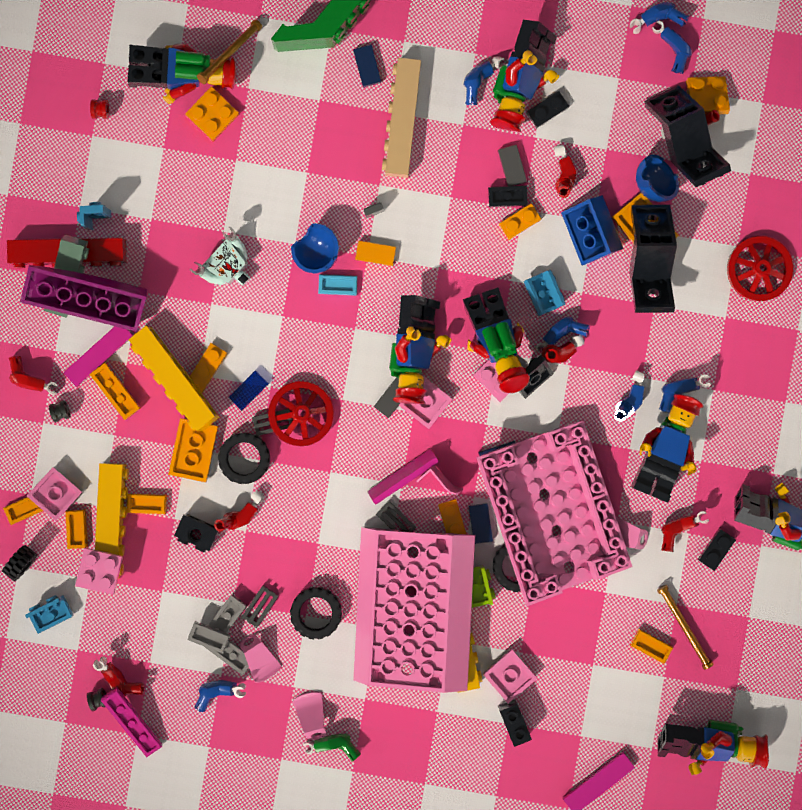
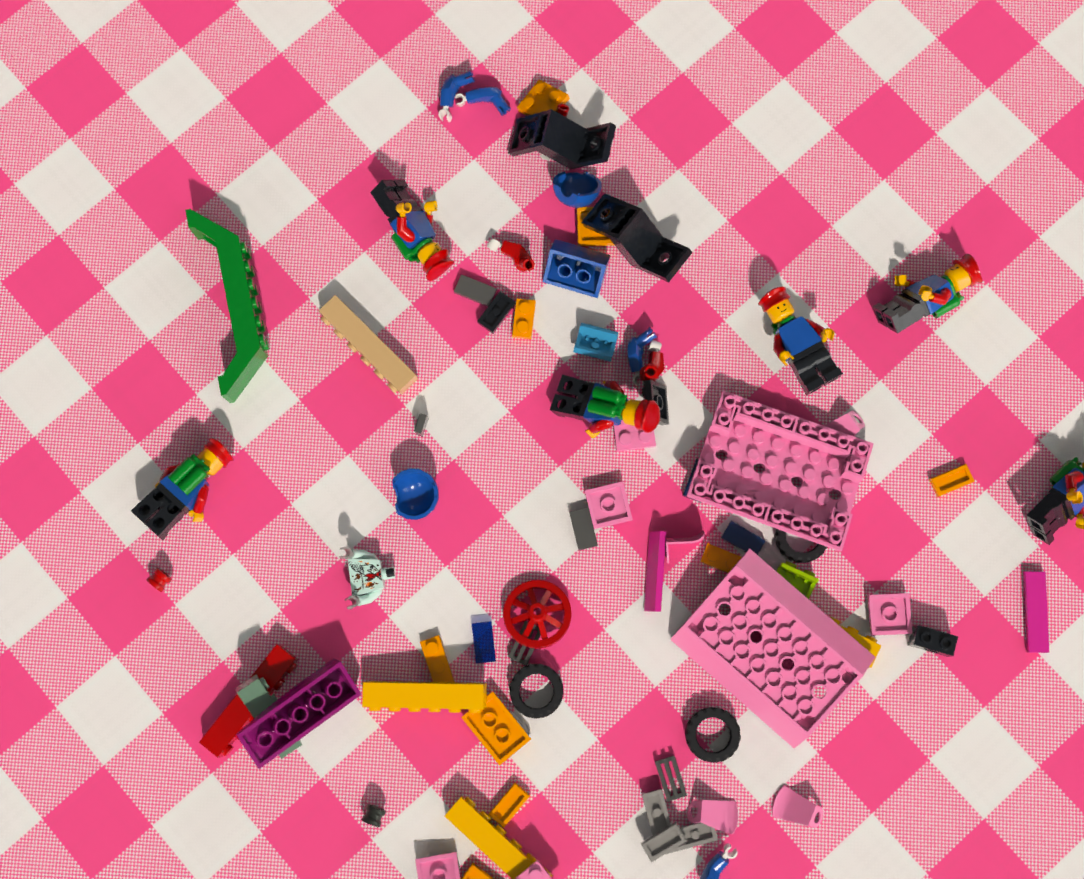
camera: 45 degrees left, 10 degrees down
(26, 381) = (324, 824): red arm -> none
(93, 211) = (236, 649): dark azure bracket -> none
(97, 355) = (353, 744): dark pink tile -> none
(115, 391) = (395, 754): light orange plate -> none
(188, 524) = (554, 781): black brick -> none
(203, 77) = (206, 471): pearl gold bar -> none
(212, 114) = (239, 492): light orange plate -> none
(240, 518) = (582, 738): red arm -> none
(335, 741) = (834, 808): green arm -> none
(337, 285) = (457, 501): medium azure tile -> none
(367, 66) = (304, 341): dark blue tile -> none
(375, 253) = (456, 451): light orange tile -> none
(384, 509) = (688, 606): dark grey tile -> none
(414, 347) = (557, 478): piece -> none
(476, 76) = (383, 264): blue arm -> none
(547, 109) = (454, 230): black plate -> none
(630, 404) = (738, 340): blue arm -> none
(677, 526) = (867, 384): red arm -> none
(680, 387) = (755, 295): blue arm -> none
(685, 627) = (1000, 447): pearl gold bar -> none
(716, 549) = (910, 368): black plate -> none
(755, 268) = (707, 168): red wheel -> none

